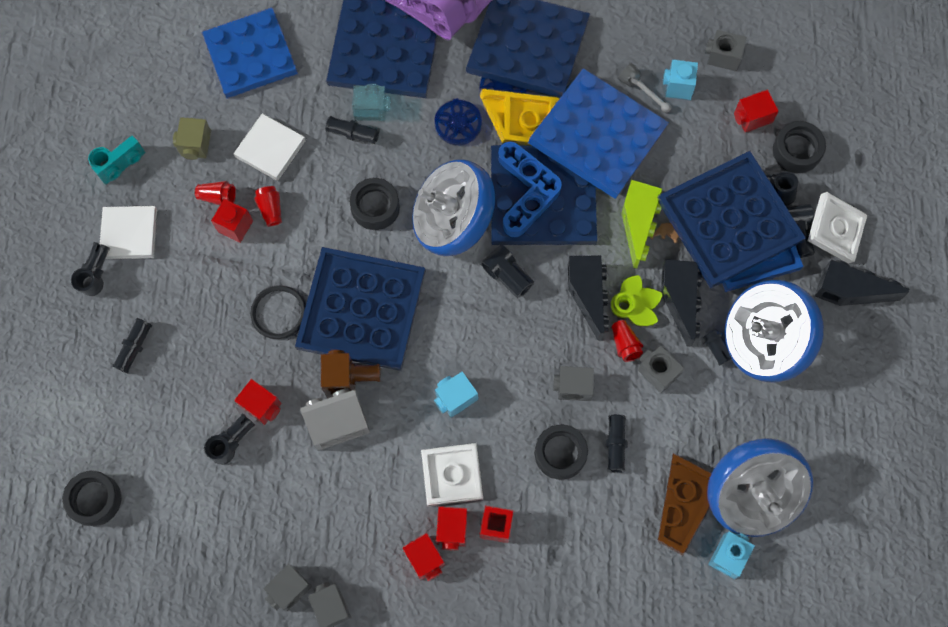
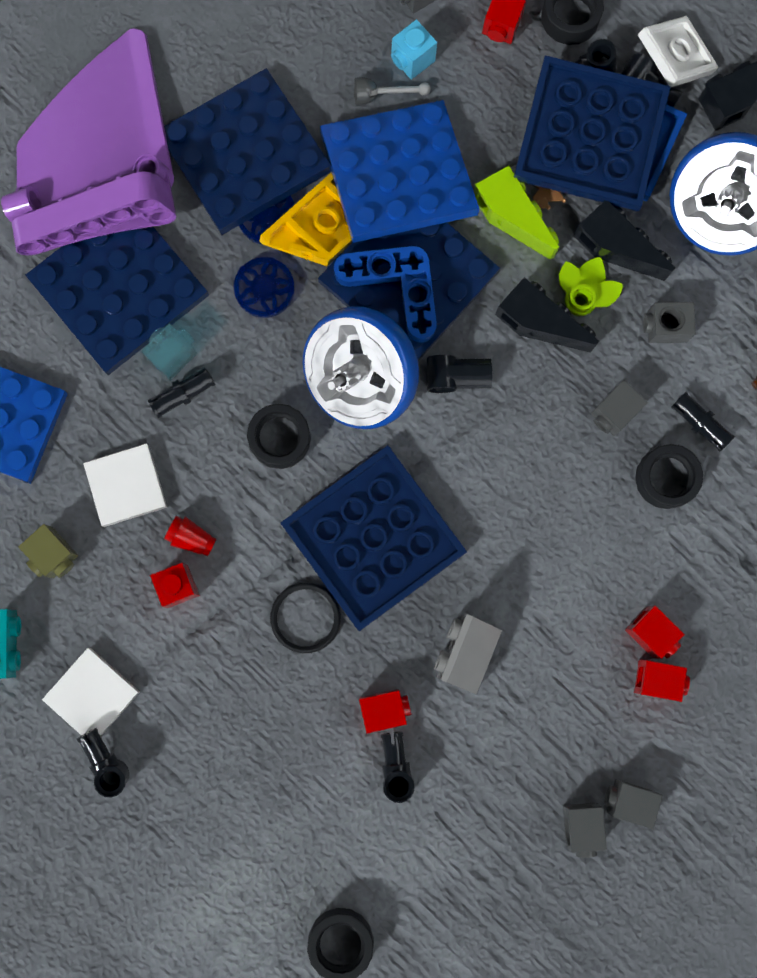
camera: 55 degrees left, 10 degrees up
(132, 345) = (217, 785): black pin -> none
(215, 192) = (130, 576): red cone -> none
(341, 373) = (430, 610): reddish brown brick -> none
(452, 474) = (603, 590): white tile -> none
(455, 394) = (534, 524): medium azure brick -> none
(496, 524) = (690, 591): red brick -> none
(626, 342) = (617, 328): red cone -> none
(717, 346) = (692, 255): black pin -> none

